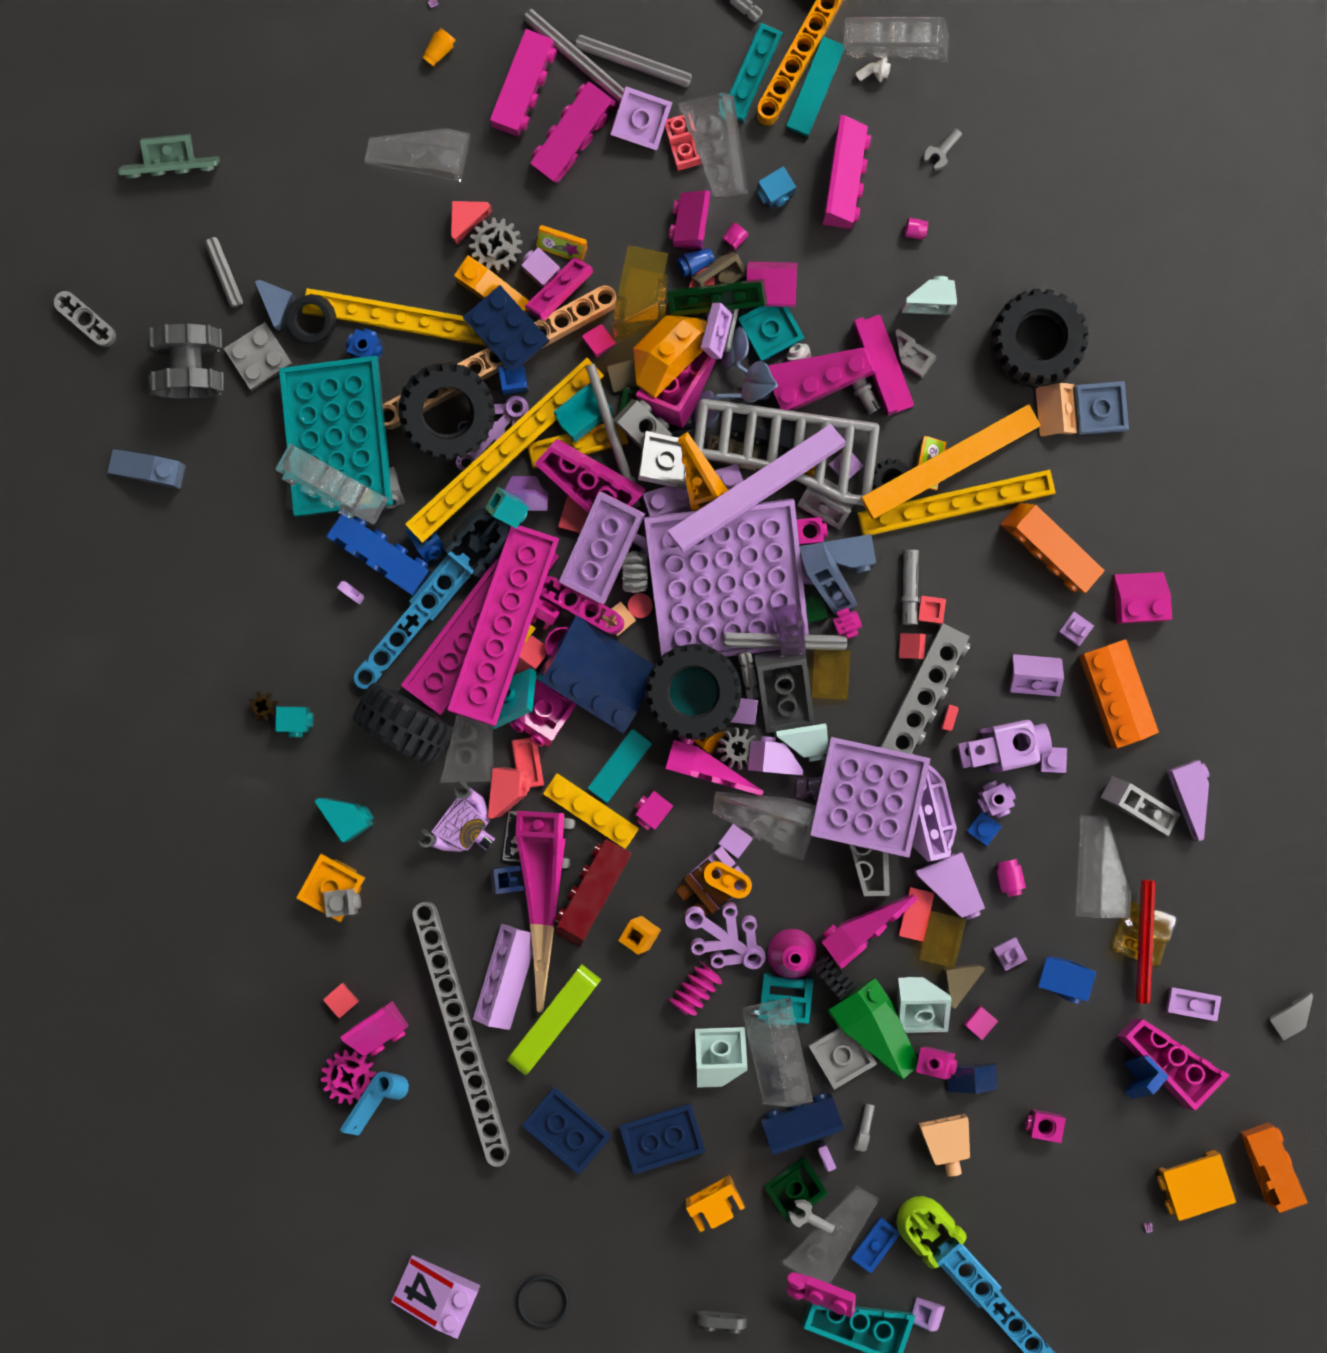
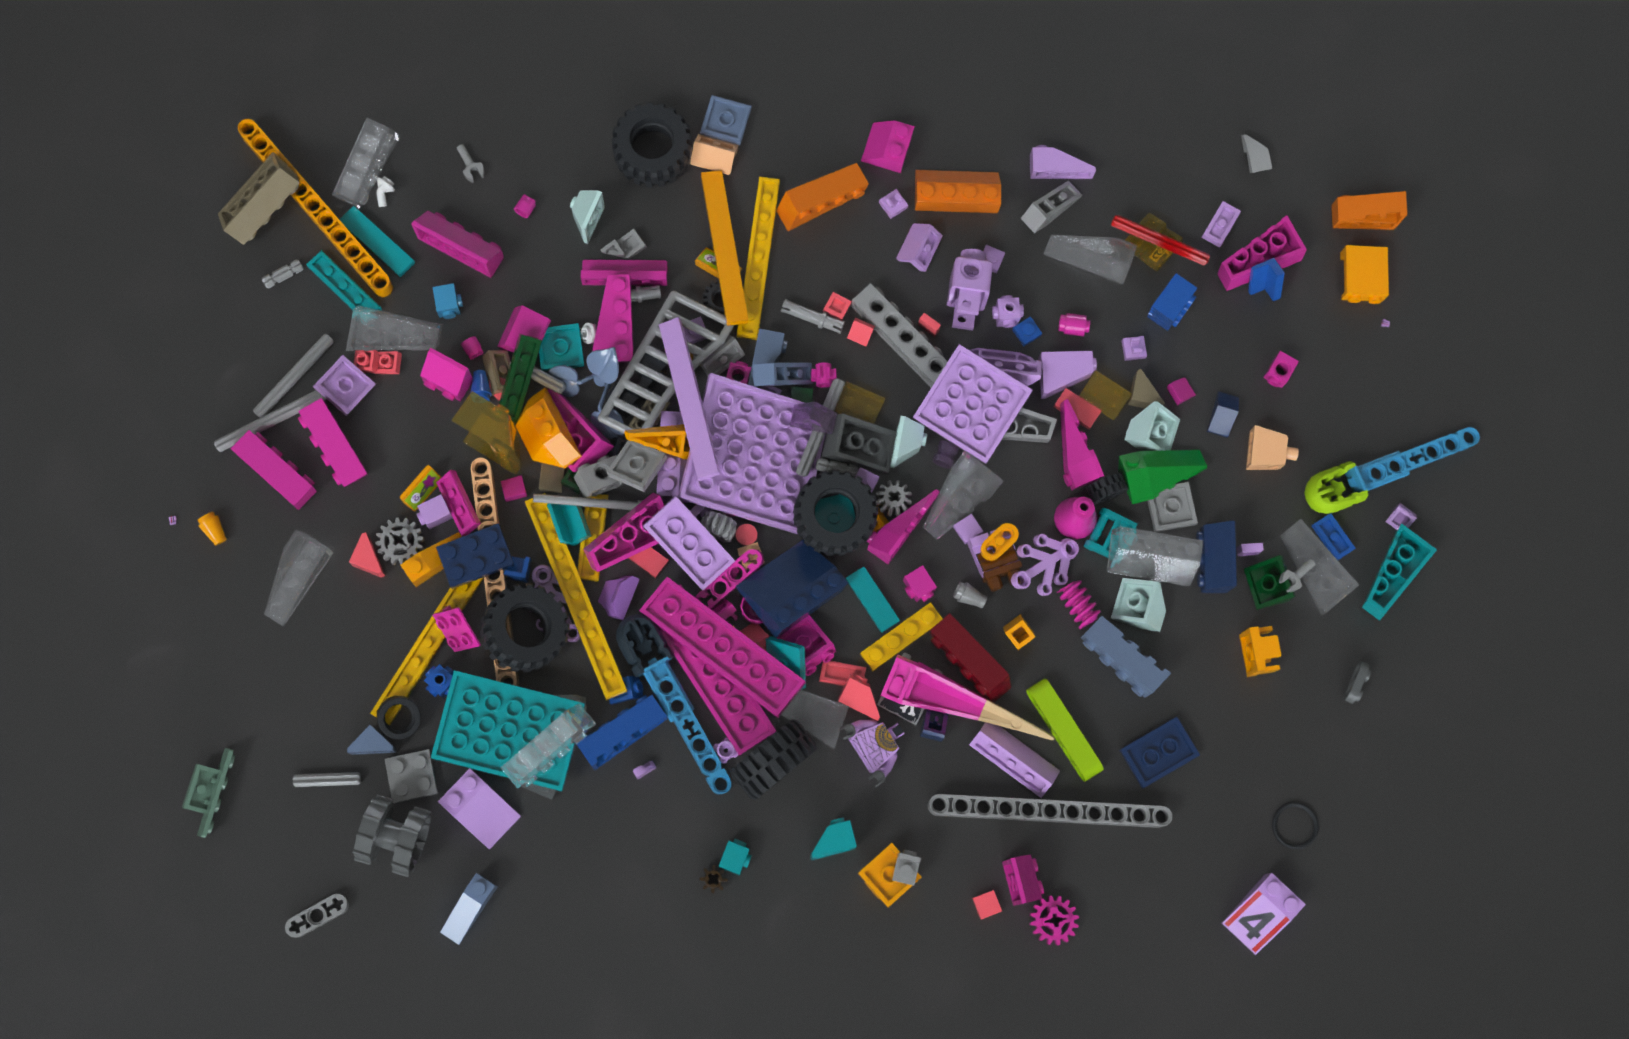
camera: 80 degrees left, 10 degrees down
(249, 438) = (479, 808): none -> lavender slope
(382, 1086) = (1072, 890): dark azure door -> none
(395, 668) = (719, 749): none -> lavender plate
(419, 344) = (456, 629): none -> dark pink hinge
(507, 507) = (625, 607): teal brick -> none
(654, 1058) = (1124, 658): none -> sand blue wedge
(662, 866) = (969, 595): none -> light grey cone
(662, 1138) = (1192, 676): dark blue plate -> none
(716, 330) = (543, 384): lavender plate -> none
(772, 757) = (911, 471): lavender slope -> none
(821, 1294) = (1361, 589): dark pink hinge -> none
(863, 1135) = (1244, 515): light grey bar -> none
(936, 1062) = (1203, 434): dark pink brick -> none

